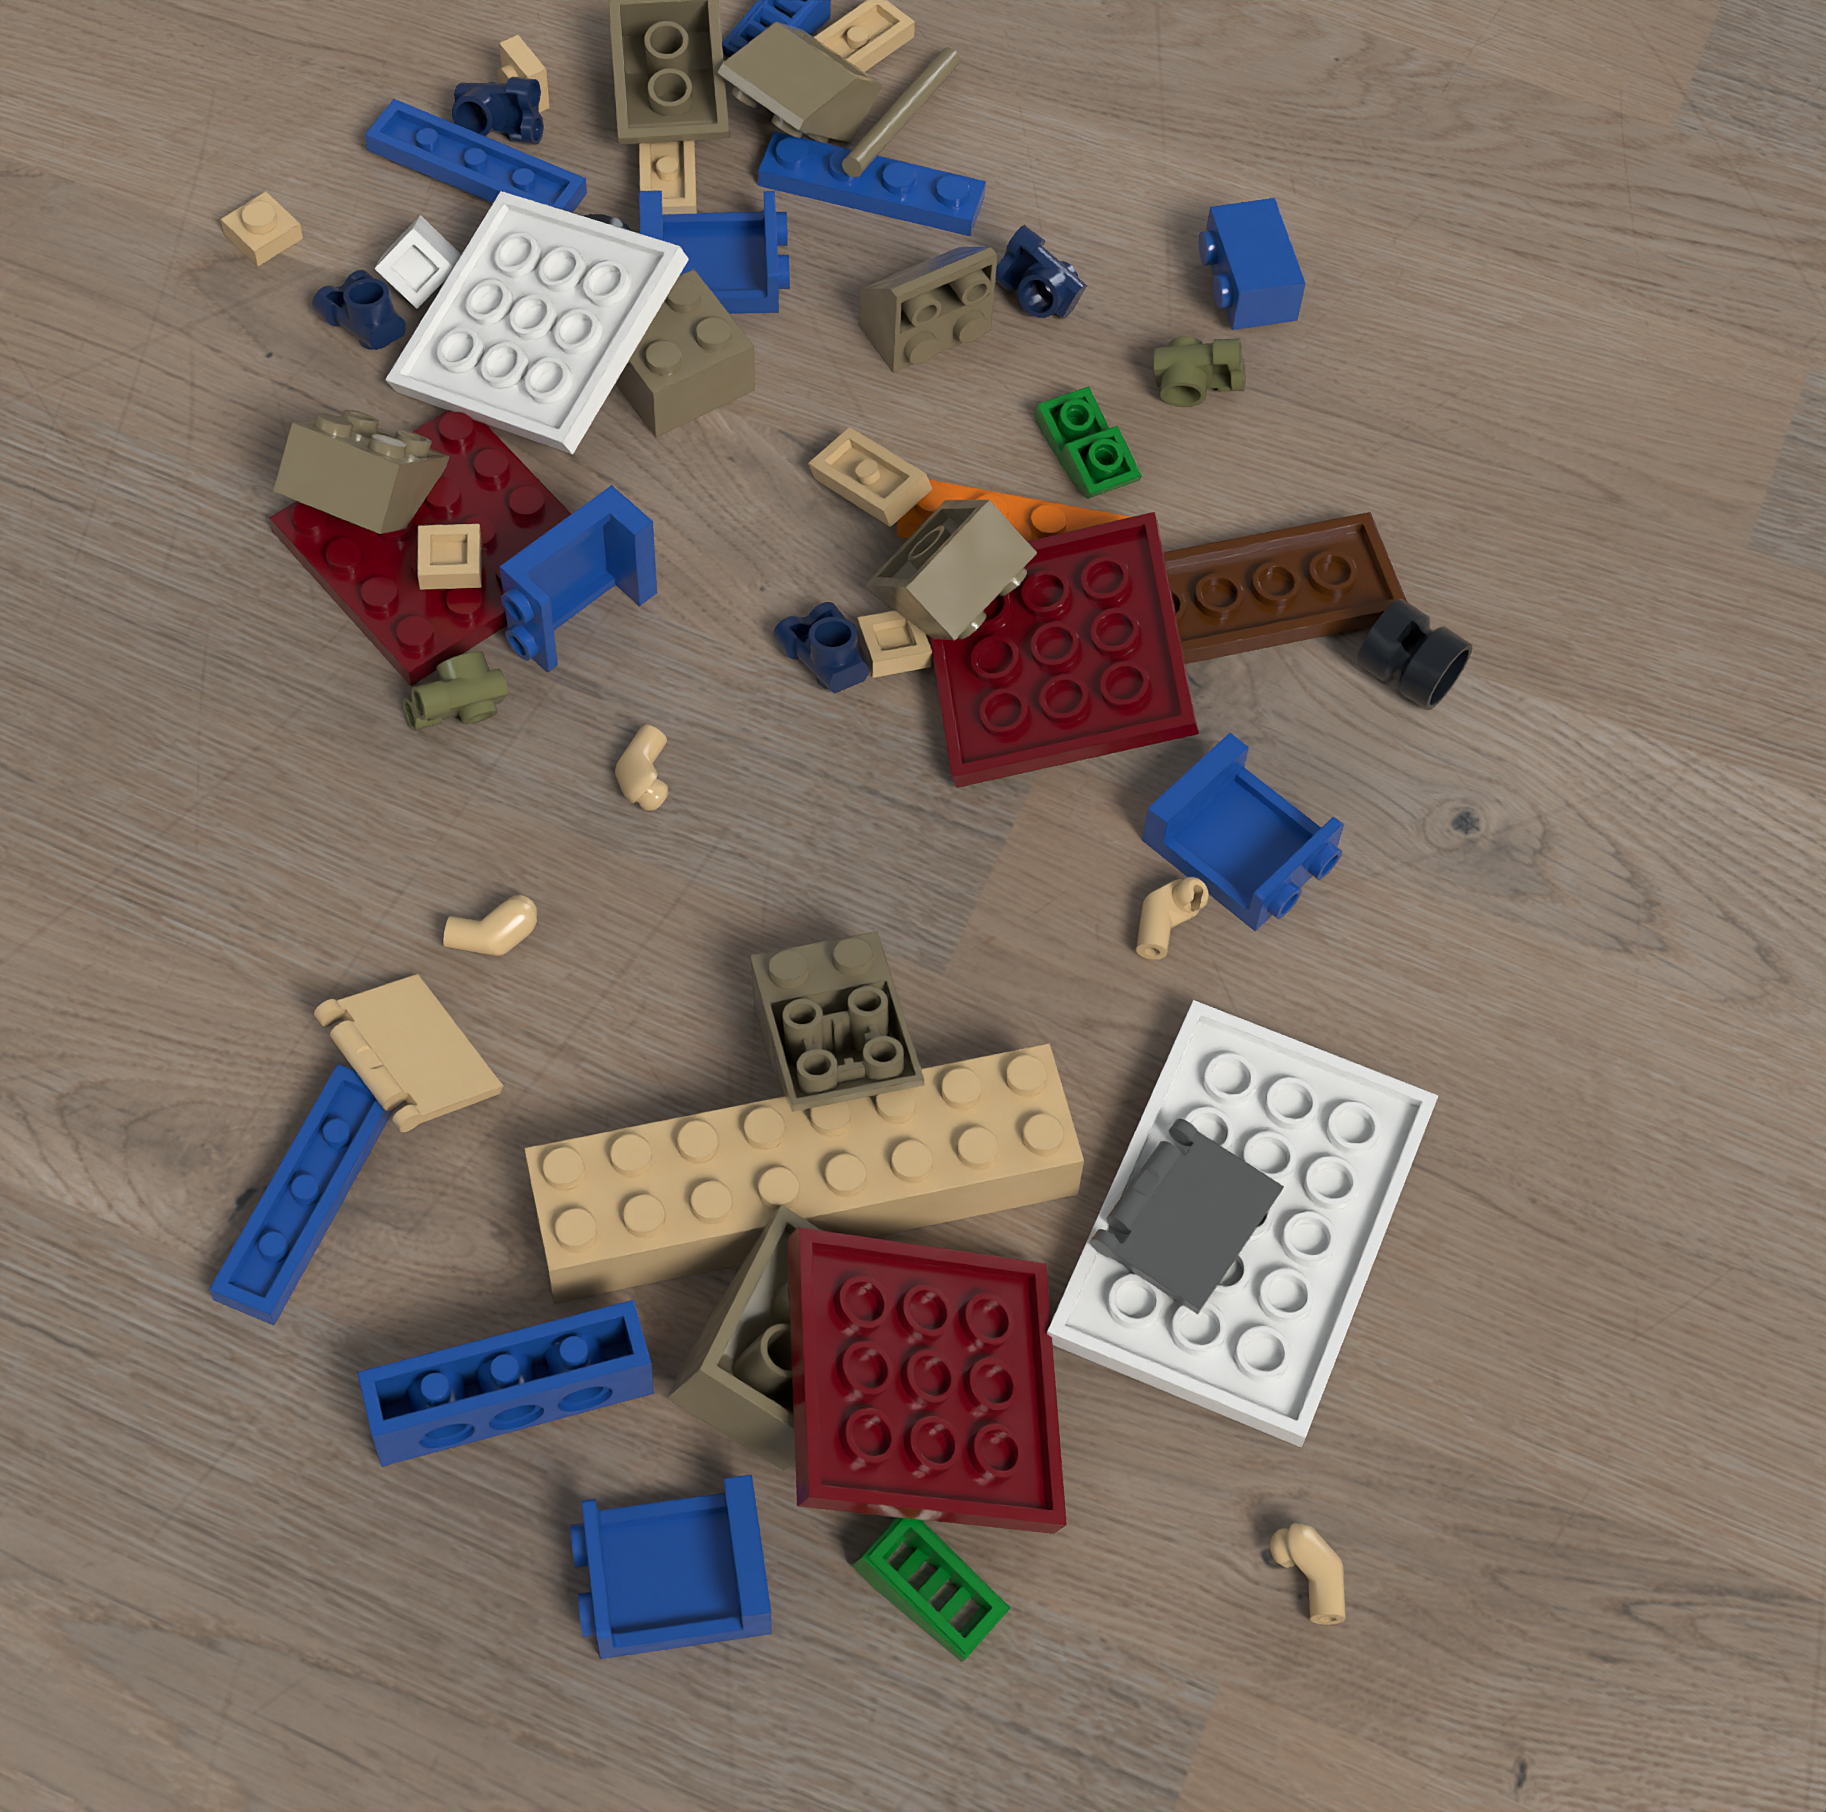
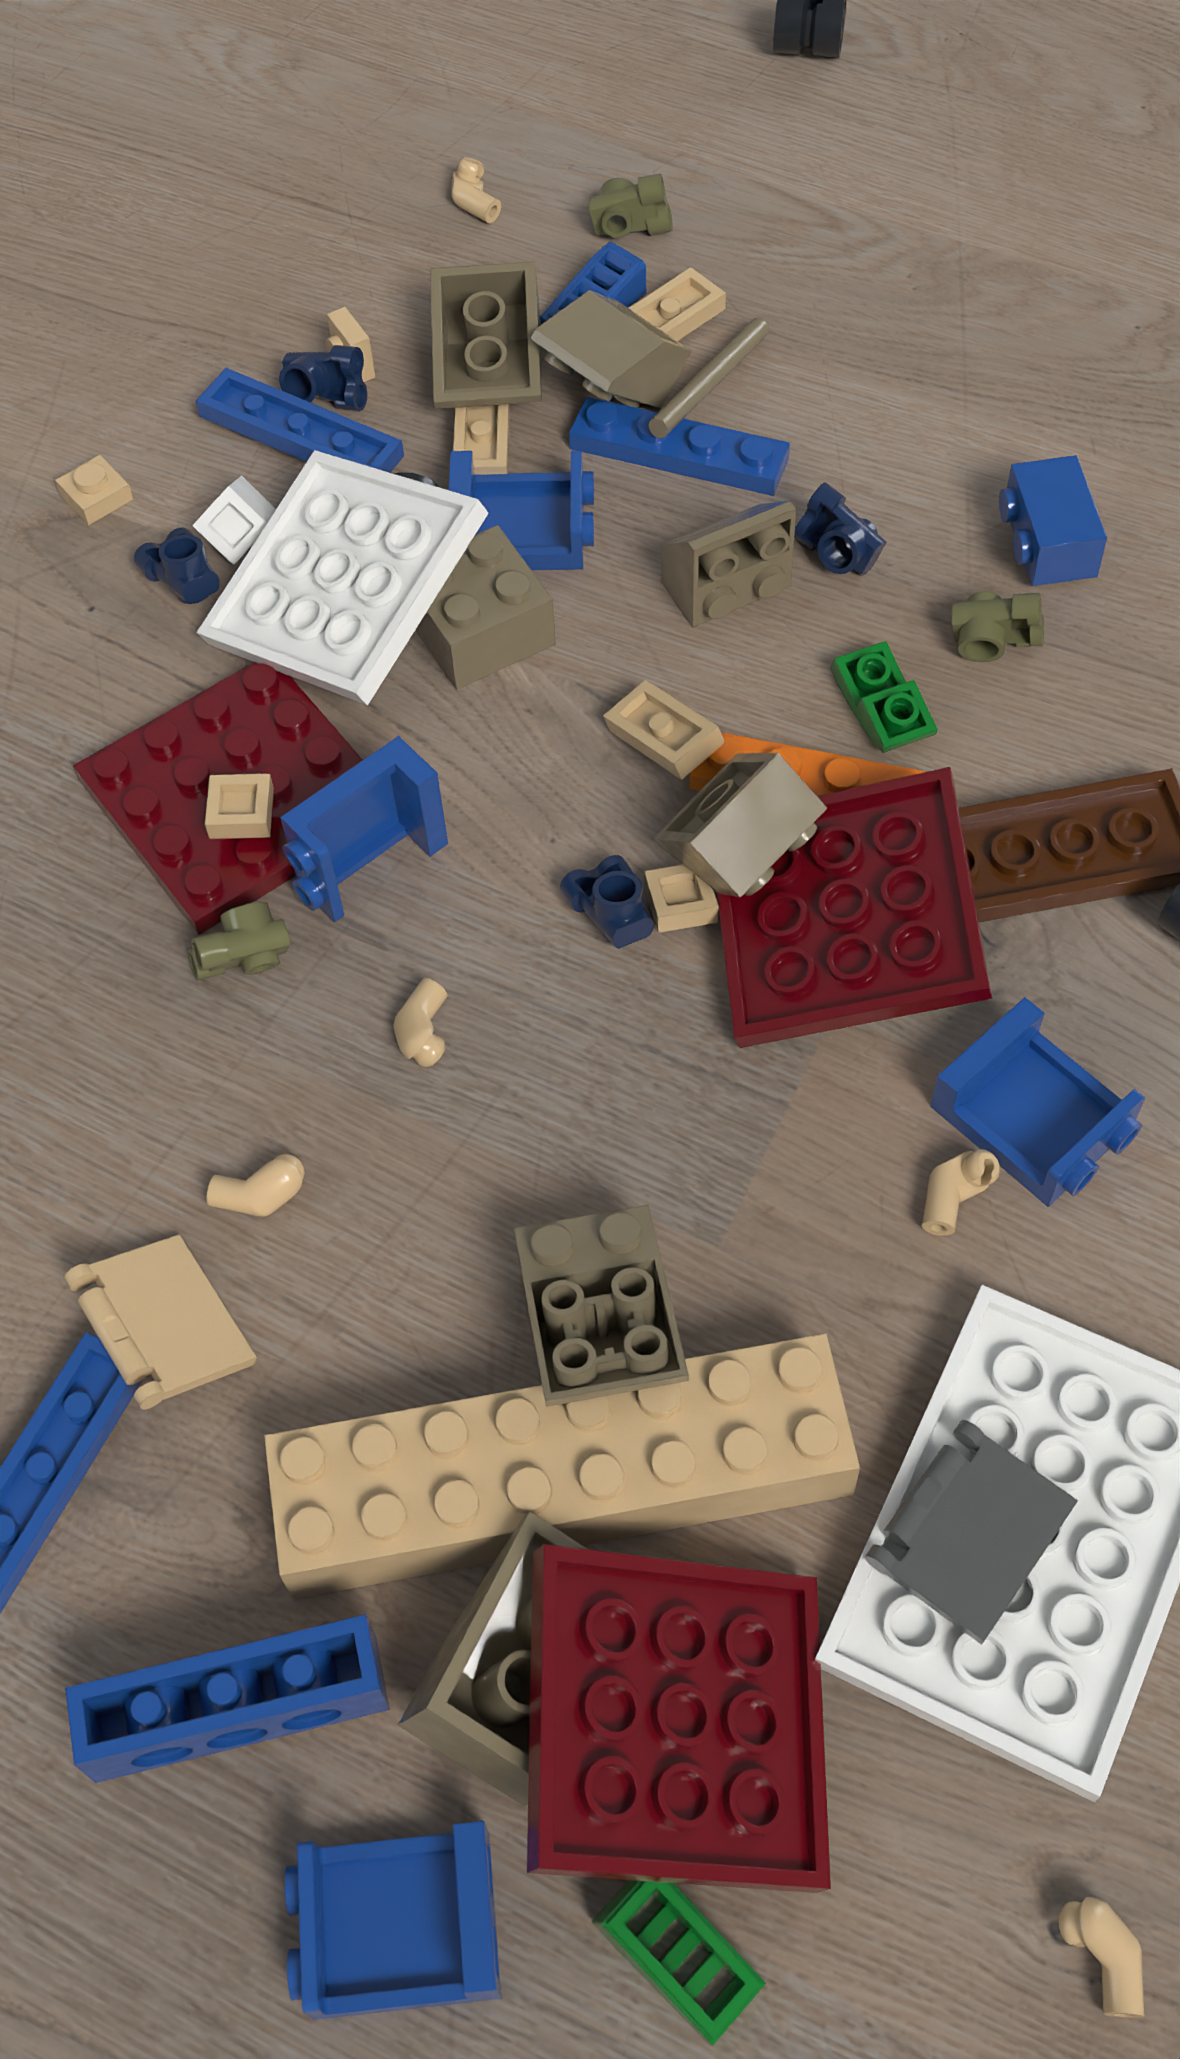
camera: 10 degrees right, 0 degrees up
(359, 470) = (156, 719): dark tan slope -> none

